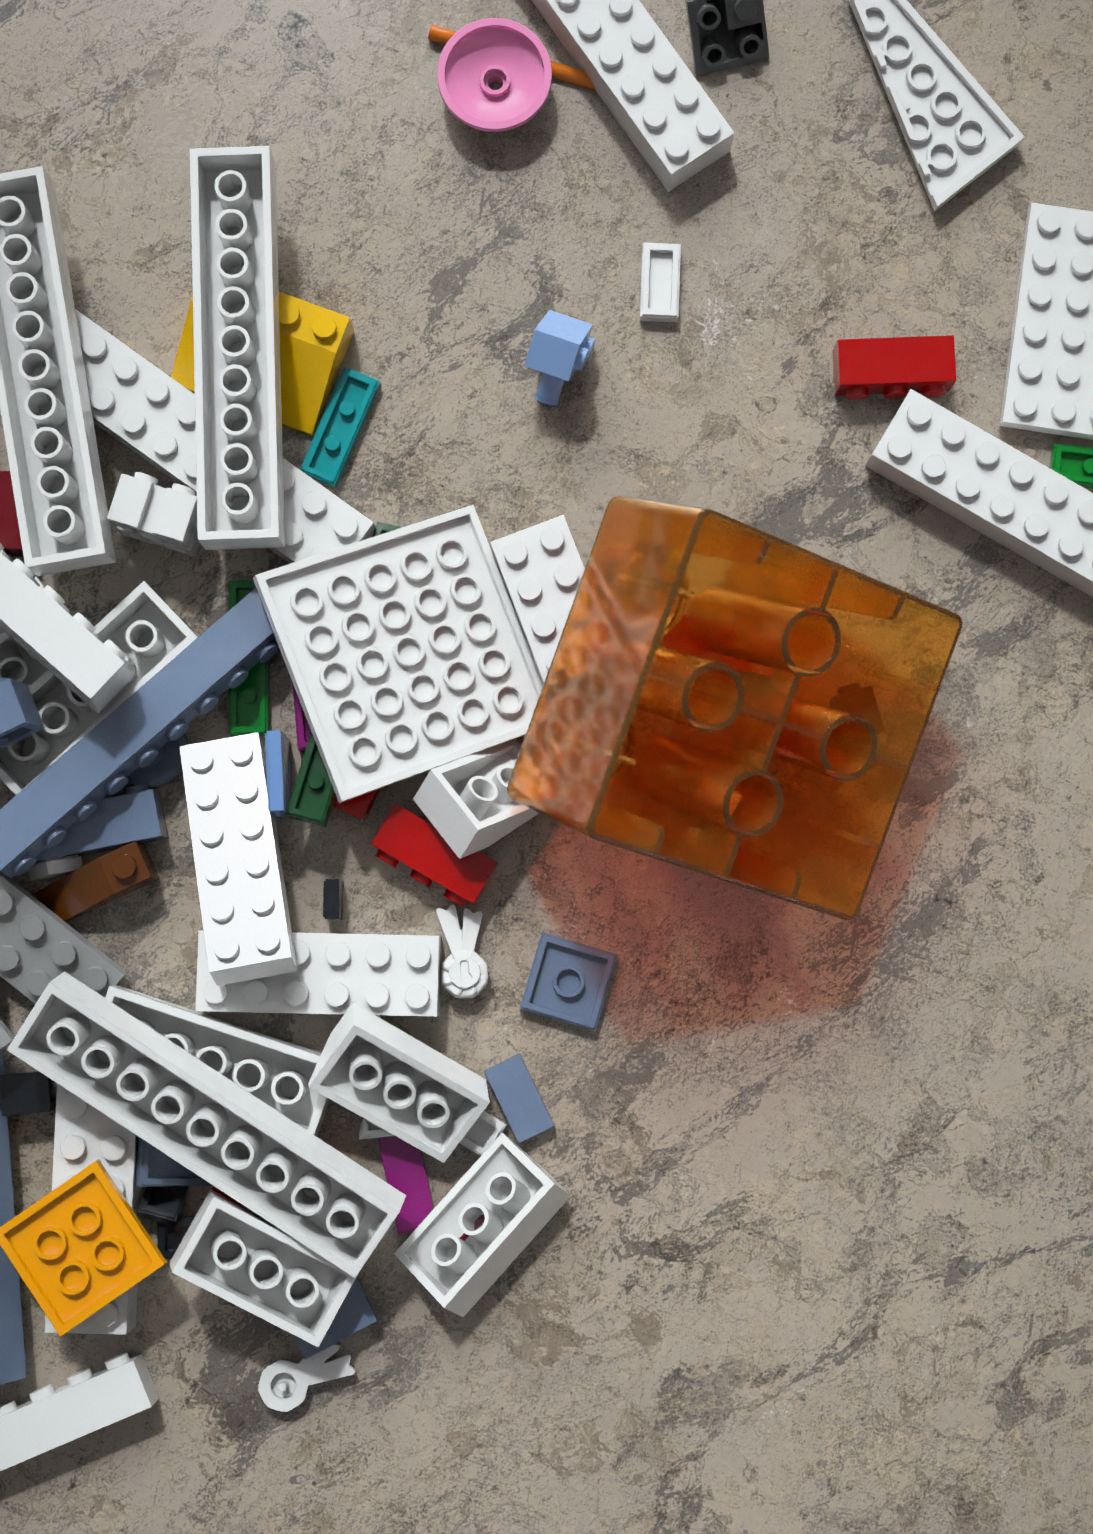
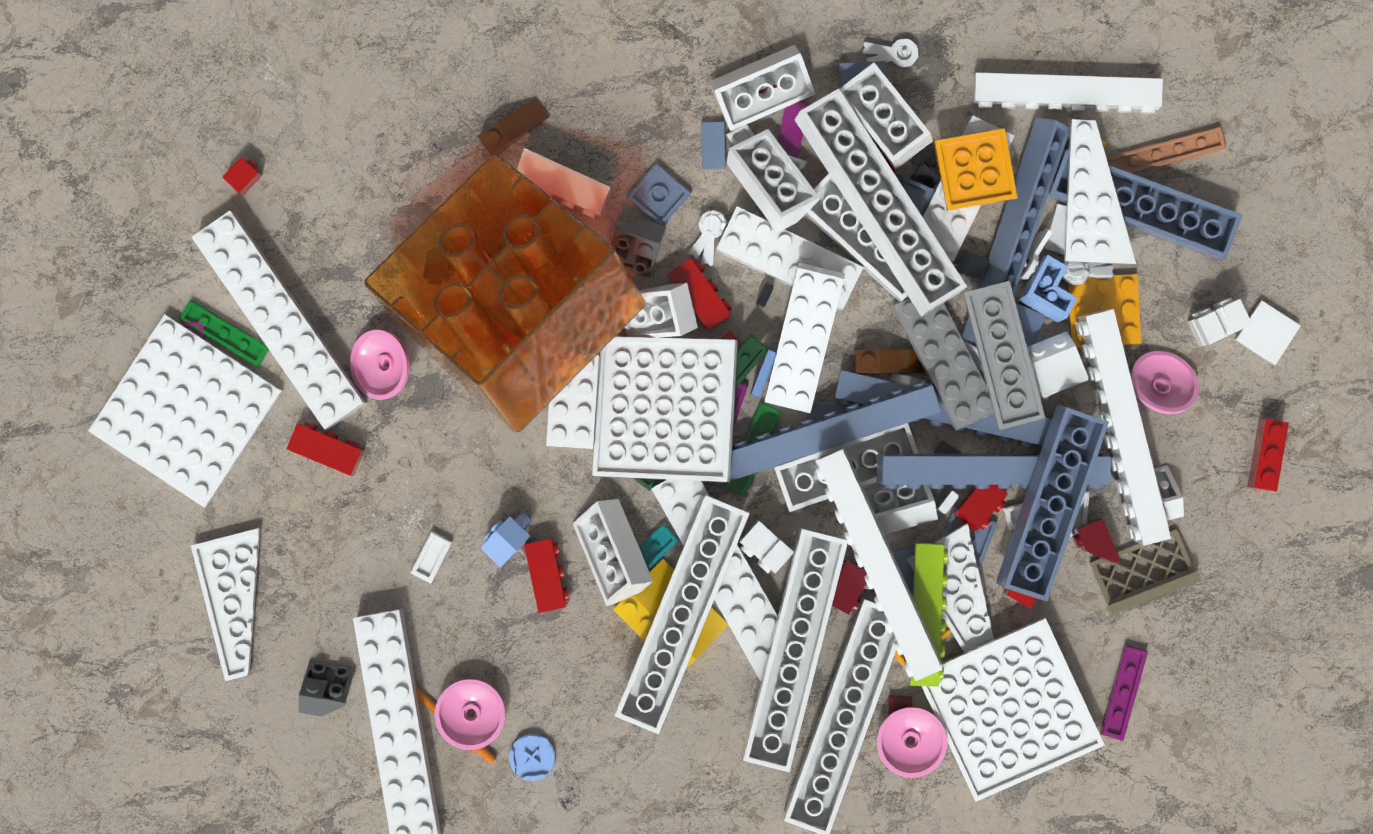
camera: 155 degrees left, 5 degrees up
(376, 63) = (532, 757): none -> light blue tile
(389, 403) = (612, 551): none -> white slope
(475, 329) = (546, 575): none -> red brick
(566, 885) = (638, 245): none -> dark grey slope
(724, 928) = (565, 184): none -> slope
(842, 981) = (513, 127): none -> reddish brown slope
(873, 525) = (371, 367): none -> bright pink dish

